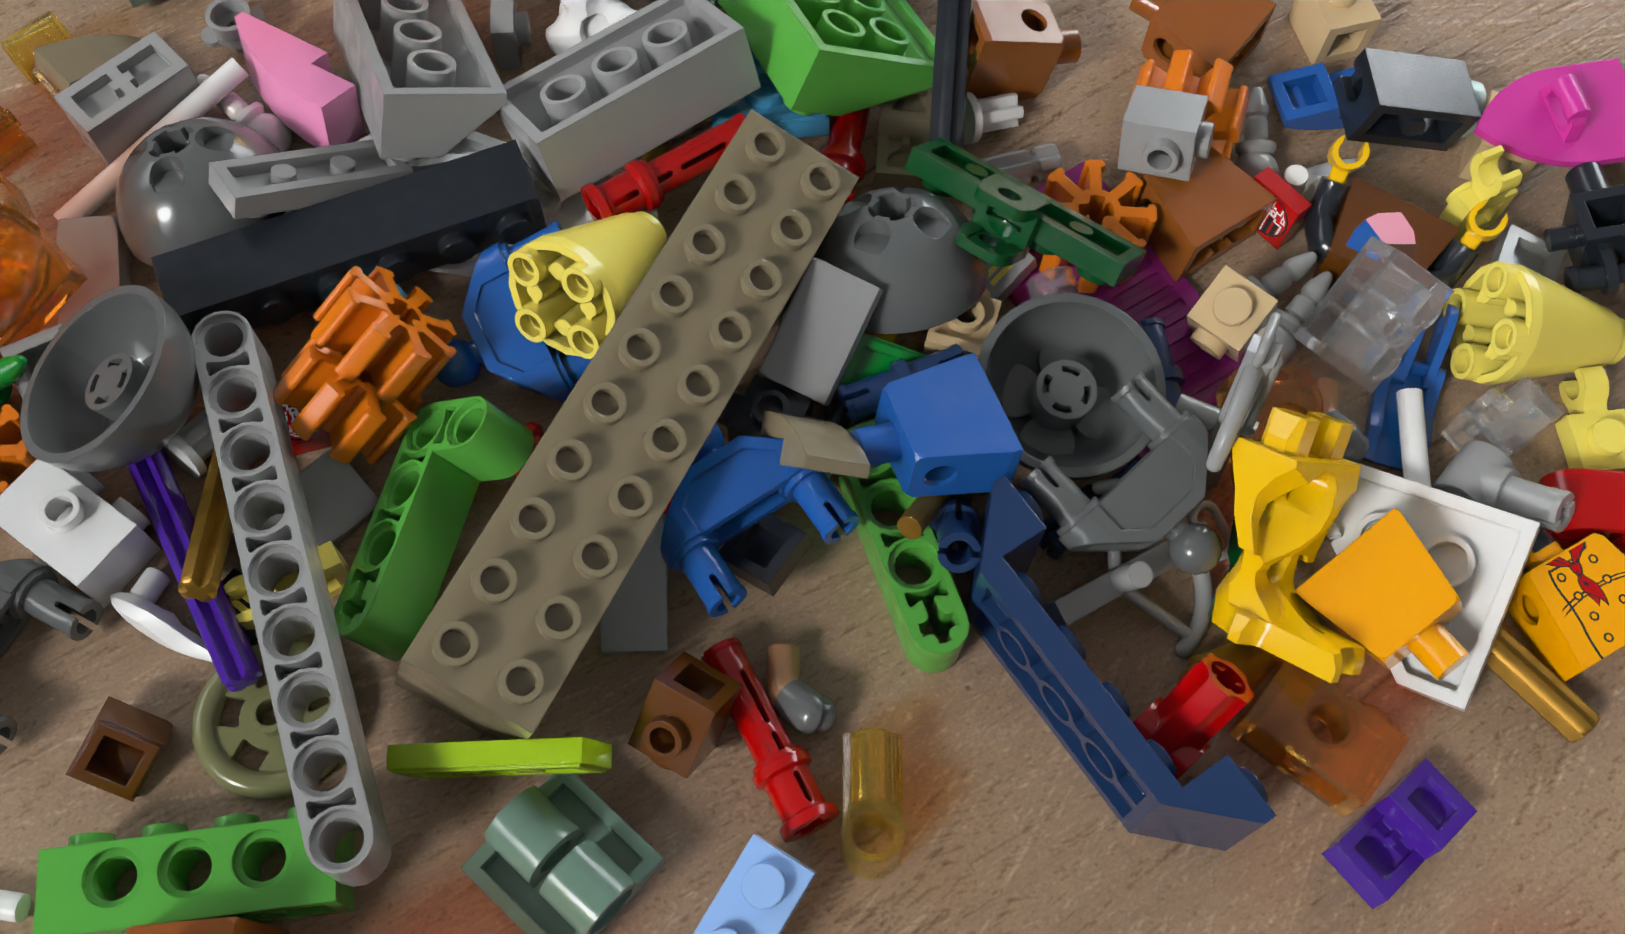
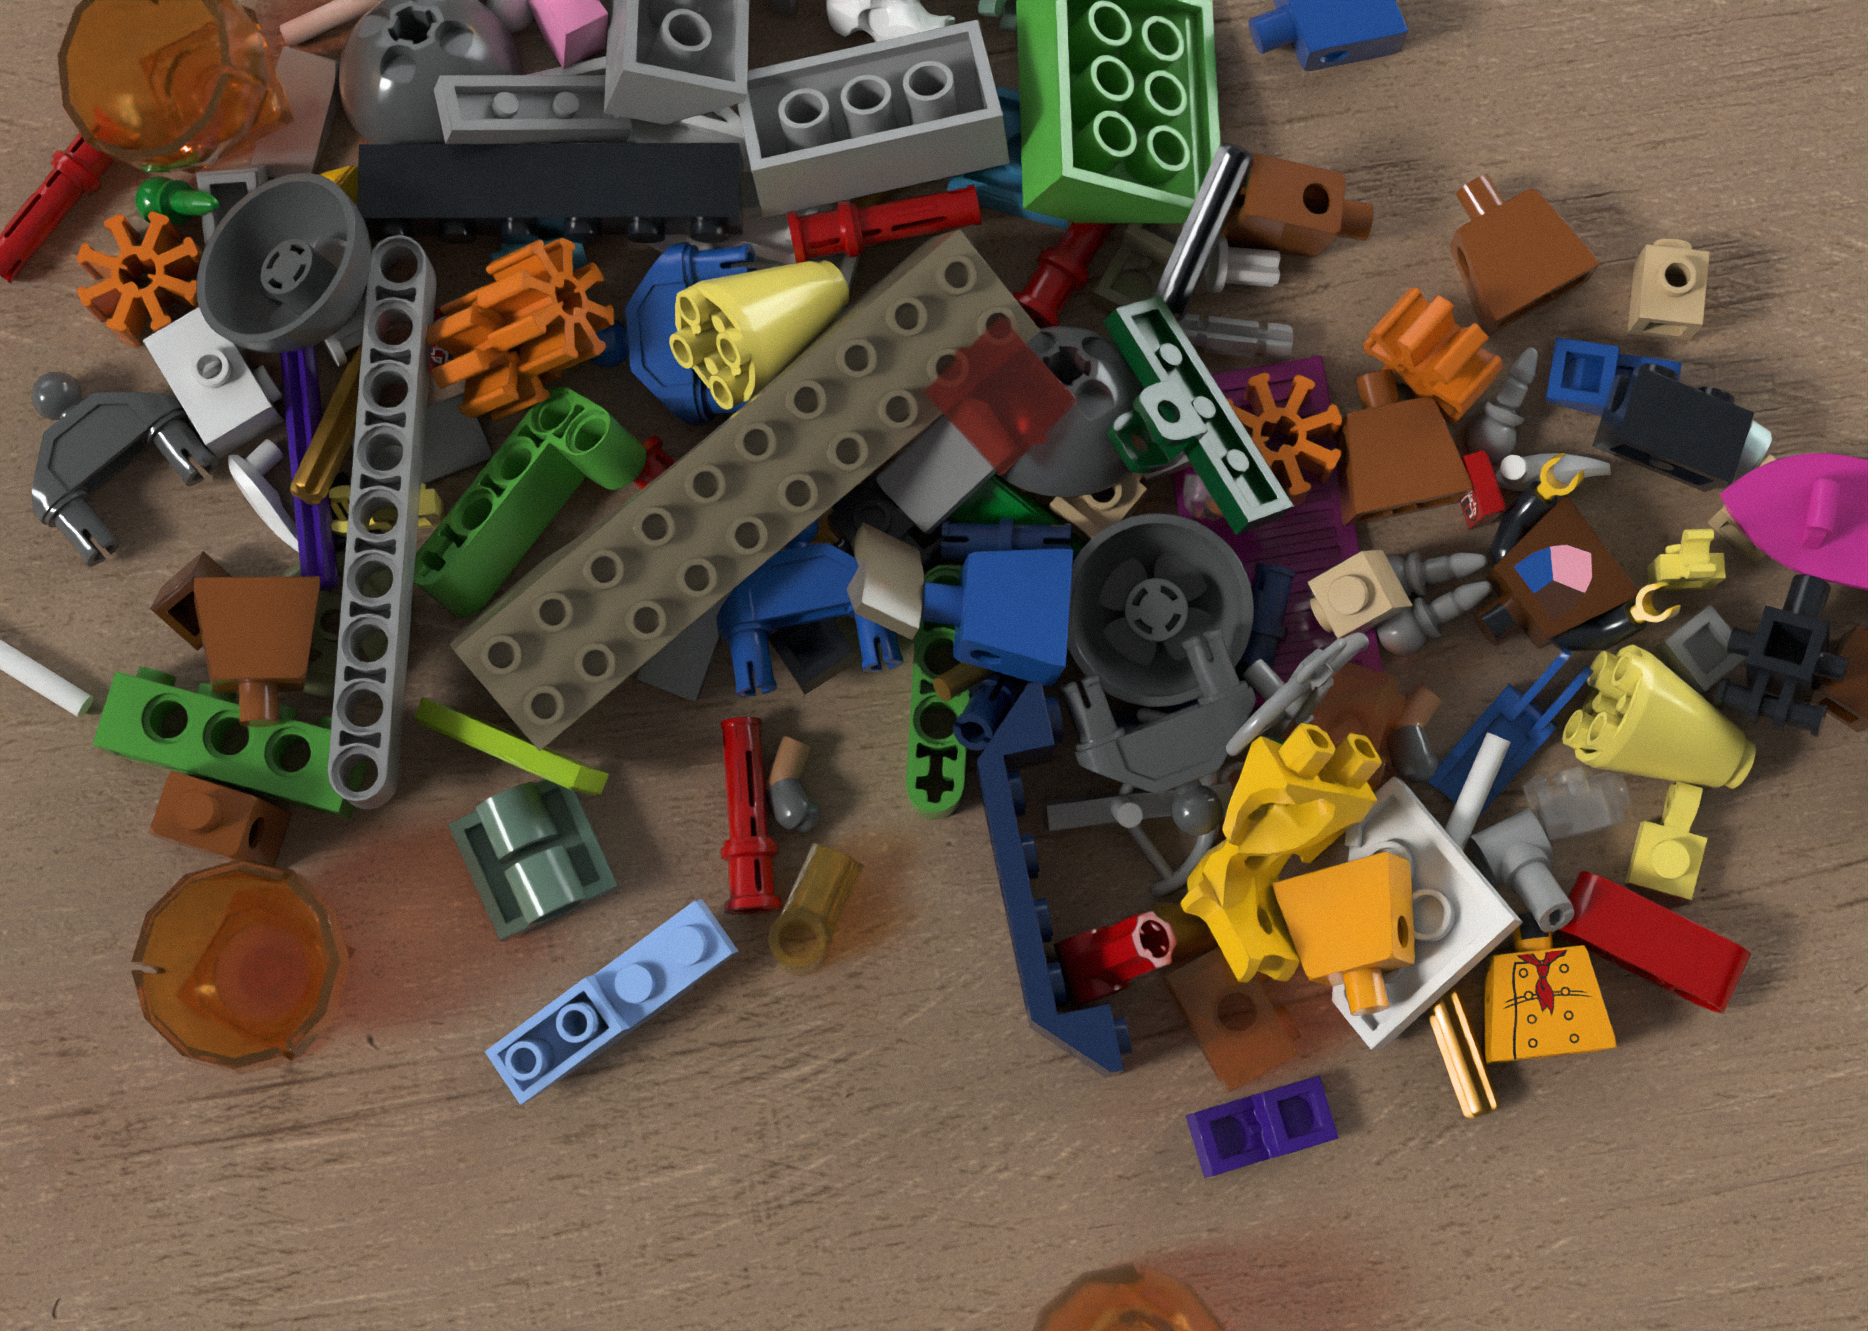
camera: 30 degrees right, 15 degrees up
(187, 751) = (257, 638): none -> dark orange torso
(684, 714) = (682, 771): reddish brown brick -> none
(849, 239) = (1000, 396): none -> clear red piece
(1164, 133) = (1381, 382): light grey brick -> none
(1374, 313) = (1492, 652): clear brick -> none

